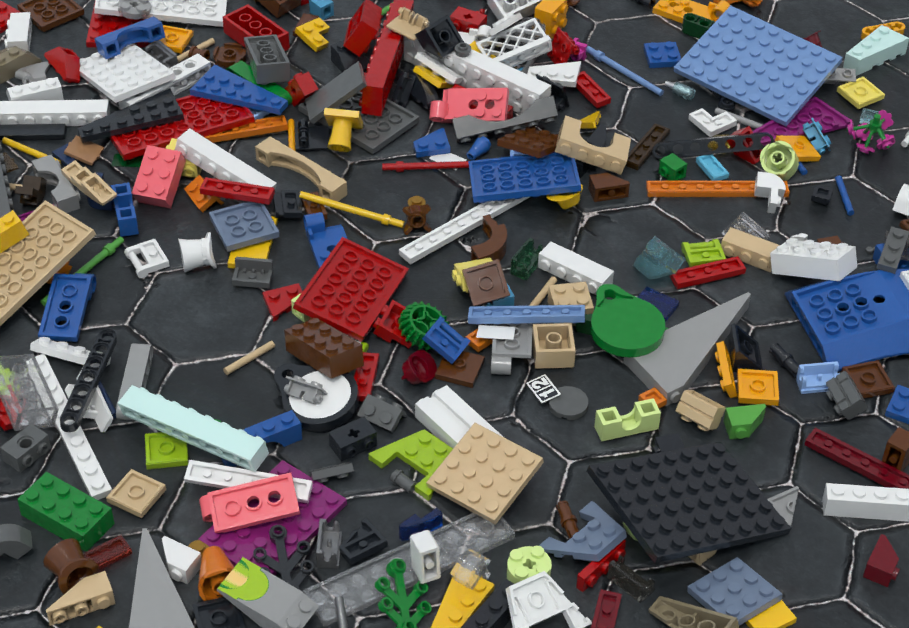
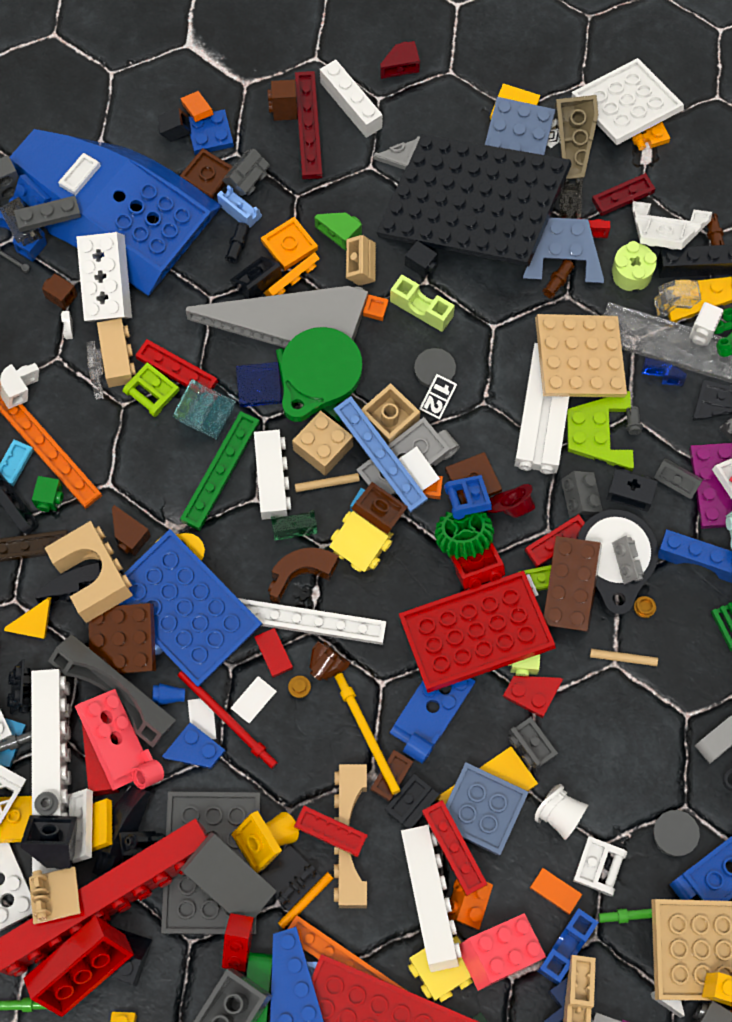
camera: 130 degrees left, 25 degrees up
(117, 304) = (676, 833): none -> dark grey tile
(161, 232) = (556, 891): none -> orange tile
(267, 389) = (644, 607): none -> pearl gold plate
(312, 150) = (330, 831): none -> red plate
(433, 185) = (253, 699): none -> white sticker
(451, 205) = (273, 652): none -> red tile
(606, 250) = (219, 471): none -> green plate

